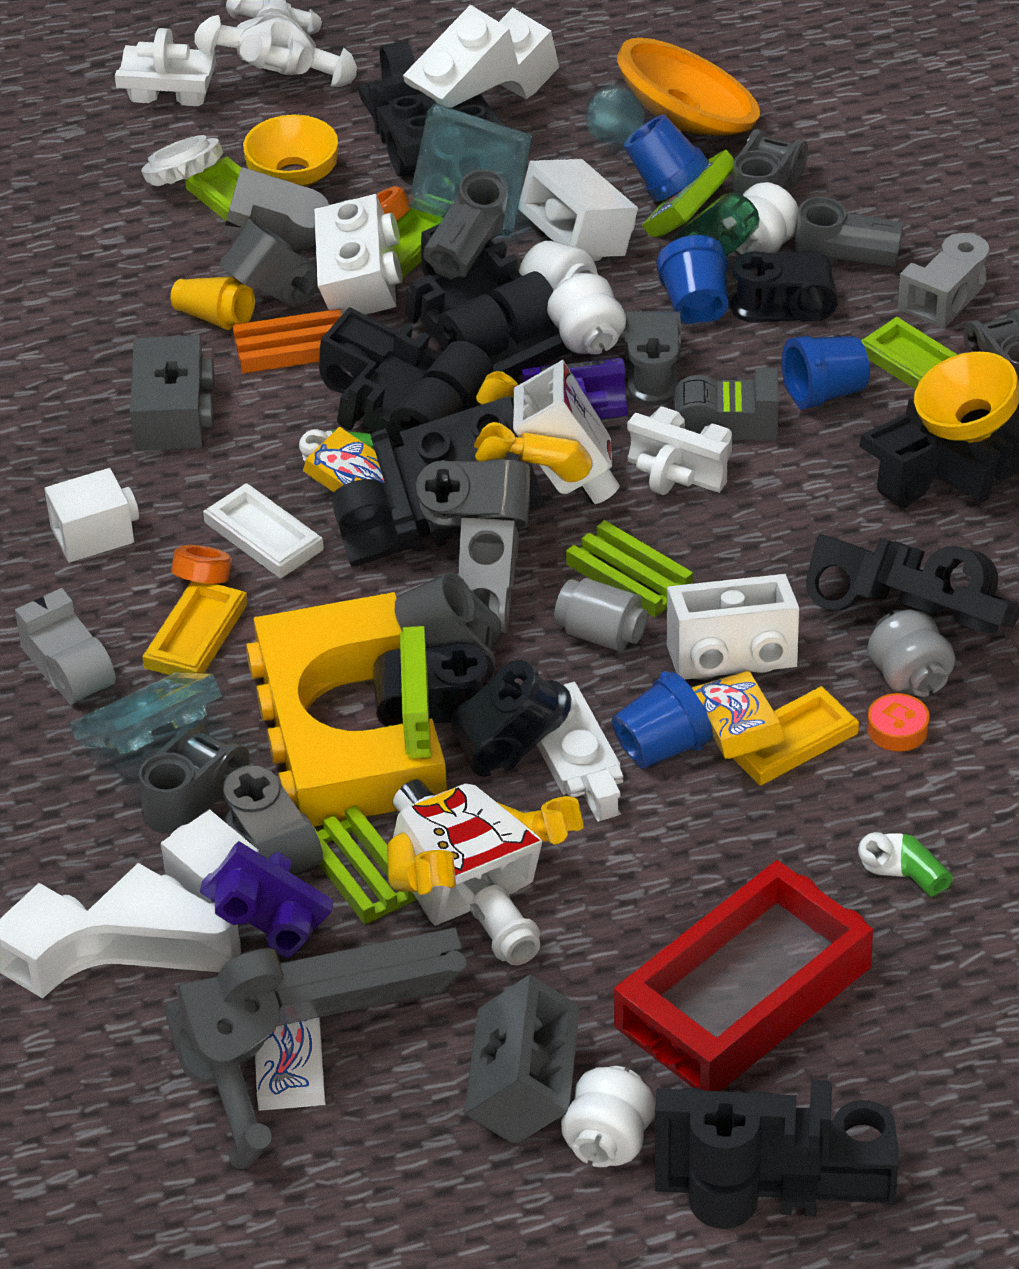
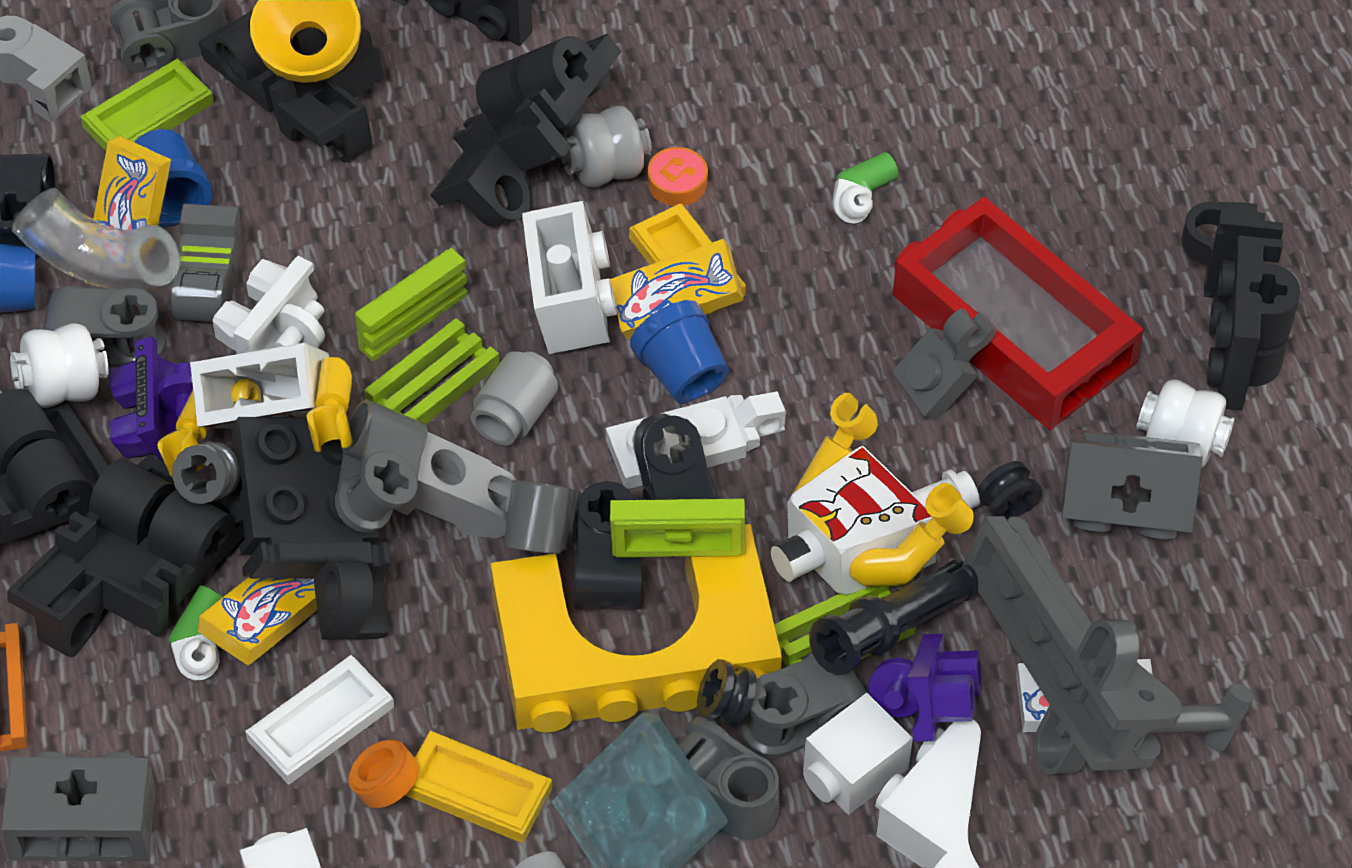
camera: 90 degrees left, 10 degrees up
(258, 749) = (726, 692): none -> black bush
(333, 853) = (877, 622): none -> black pin
(461, 392) = (186, 477): none -> dark grey bush
(513, 969) = (1009, 490): none -> black bush
(661, 909) = (939, 364): none -> dark grey plate
(699, 536) = (411, 304): none -> lime tile
(719, 319) = (95, 251): none -> clear cylinder
(775, 334) = (131, 185): none -> yellow tile

